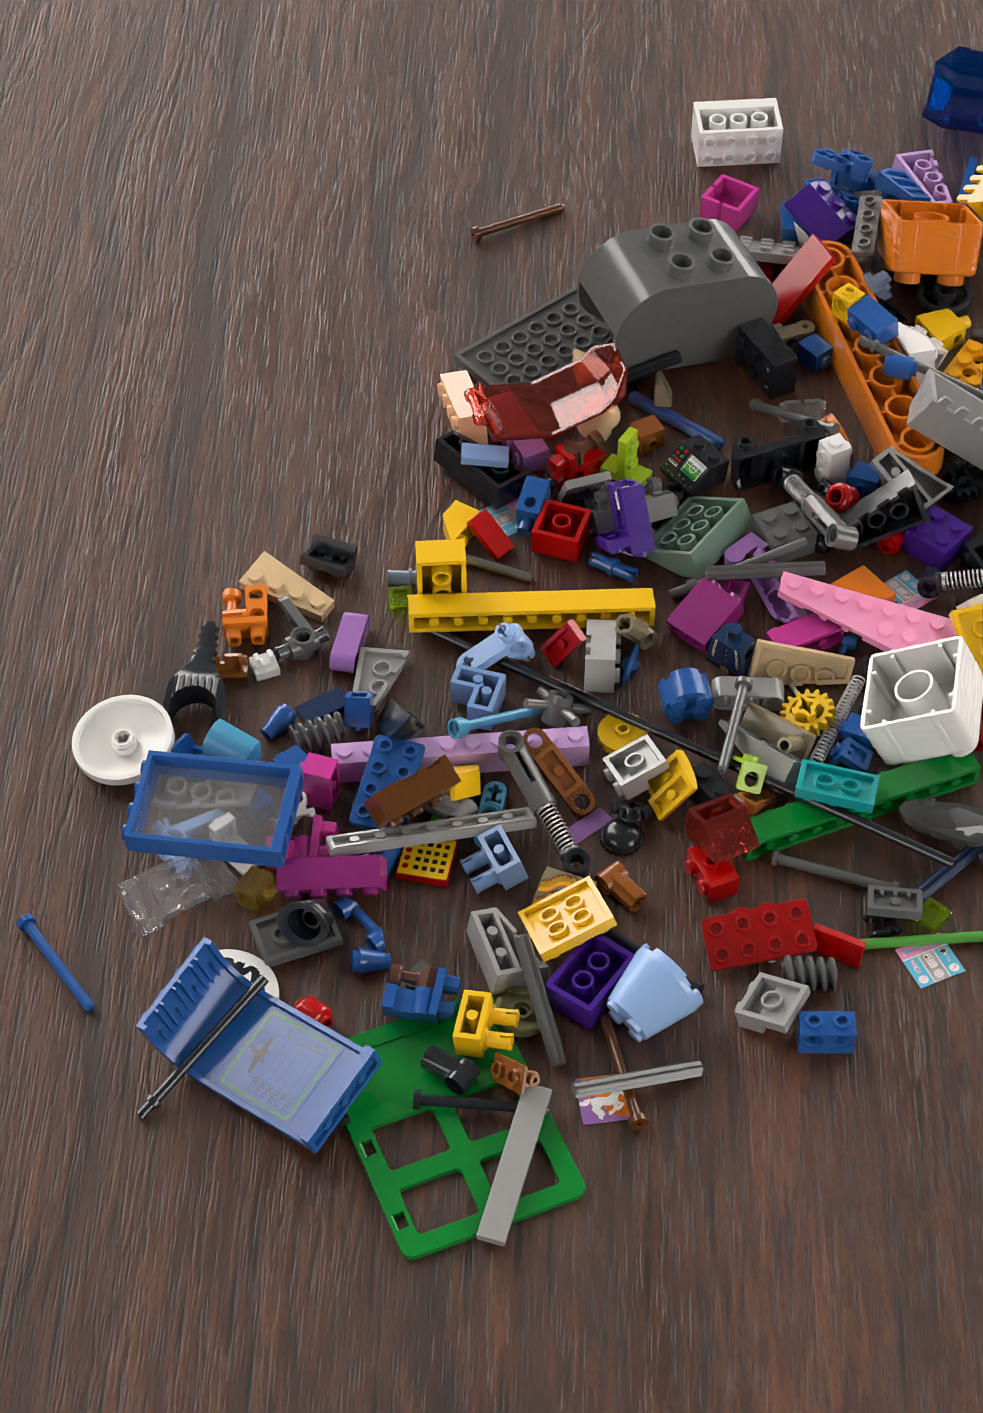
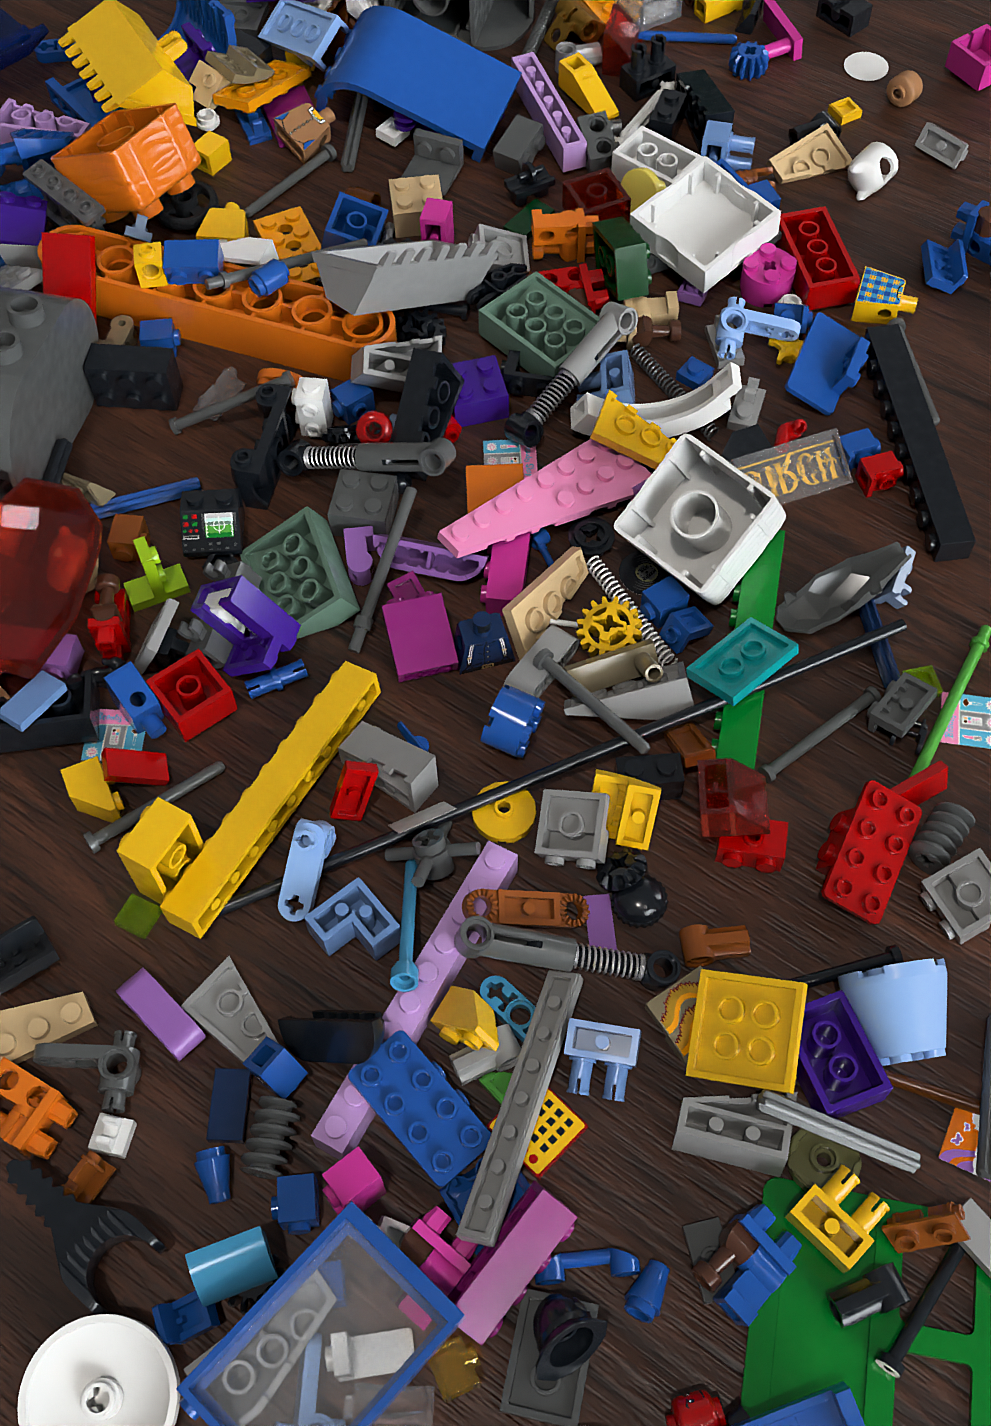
camera: 55 degrees left, 10 degrees up
(402, 577) = (112, 895): sand blue pin -> none
(412, 794) = (472, 1090): reddish brown wedge -> none
(636, 630) = (387, 710): dark tan piece -> none
(750, 764) = (664, 717): lime bracket -> none
(764, 570) = (411, 549): dark grey axle -> none

